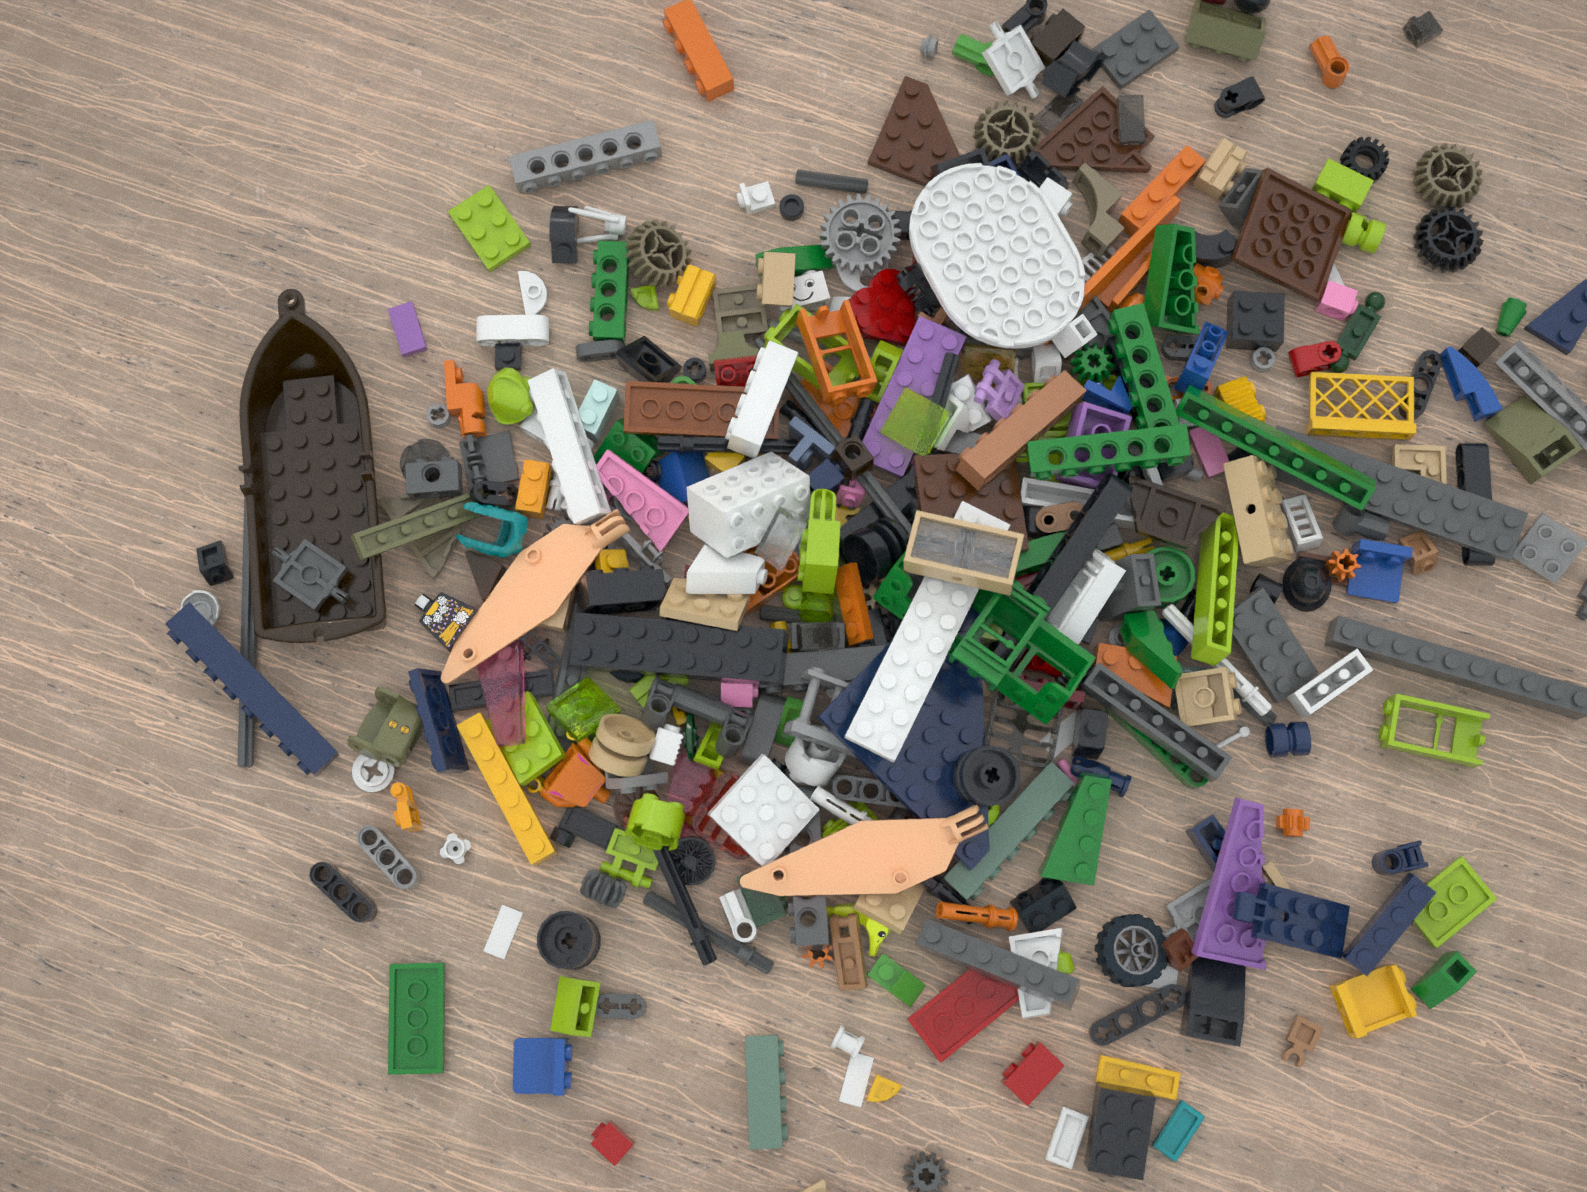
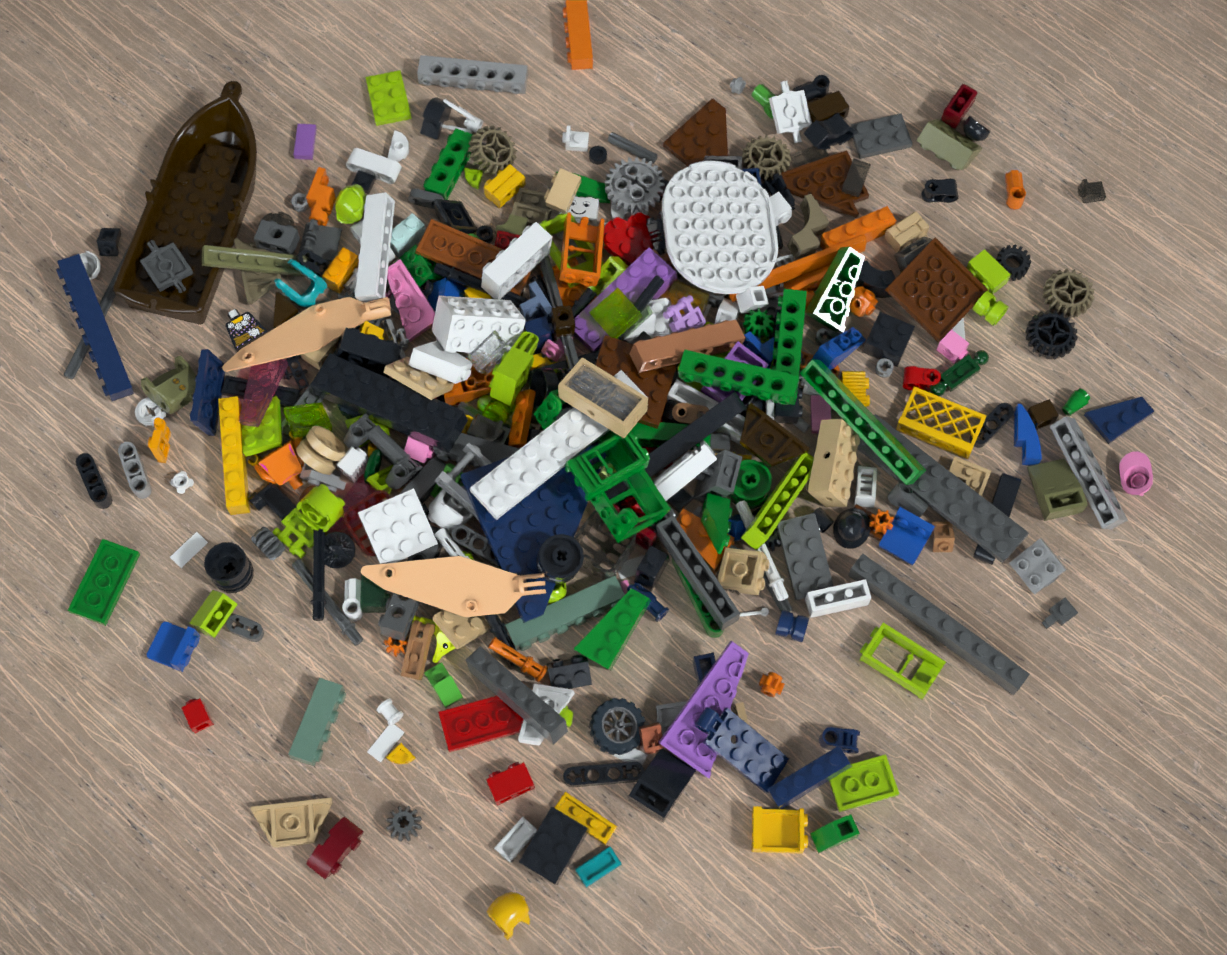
camera: 20 degrees right, 10 degrees down
(1303, 1036) = (716, 835): medium nougat plate -> none

